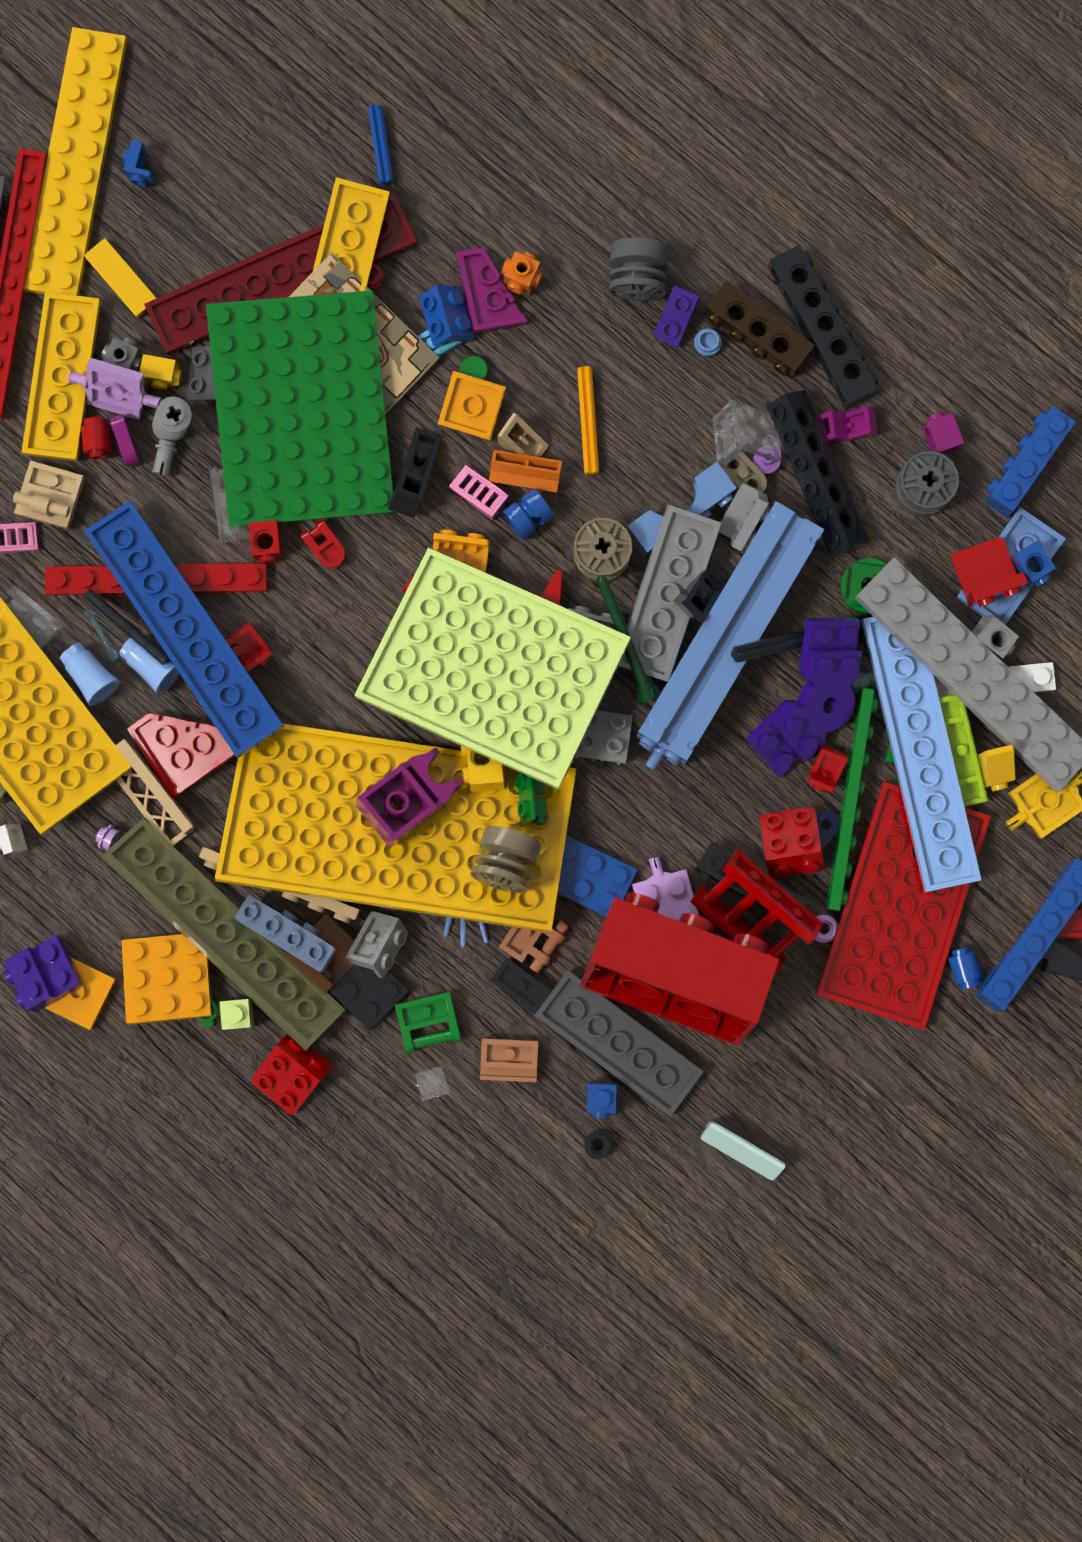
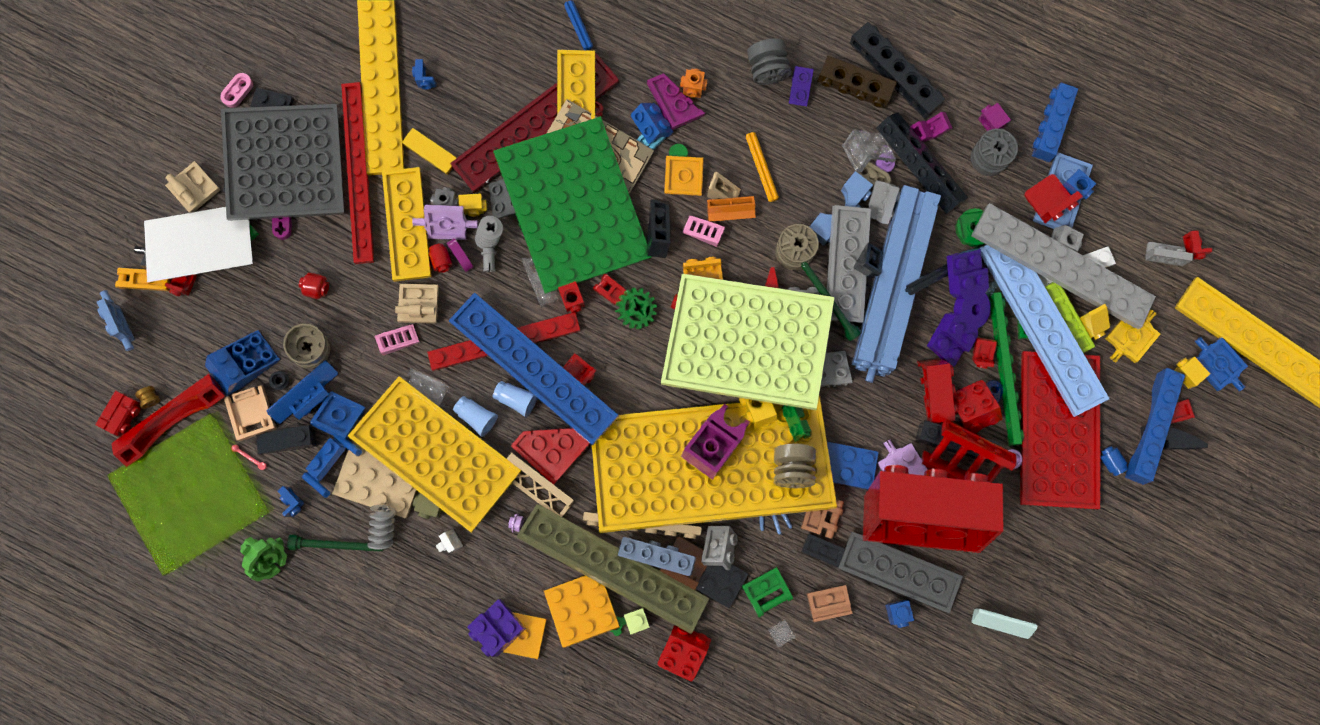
camera: 20 degrees left, 5 degrees down
(112, 654) = (486, 398): clear light blue hinge -> none
(126, 627) = (493, 377): black bar -> none
(349, 569) = (640, 314): none -> green gear
(528, 514) = (742, 234): blue wheel -> none
(607, 1145) = (911, 645): black plate -> none
(707, 342) = (825, 98): medium blue plate -> none
(745, 805) = (938, 390): none -> red wedge

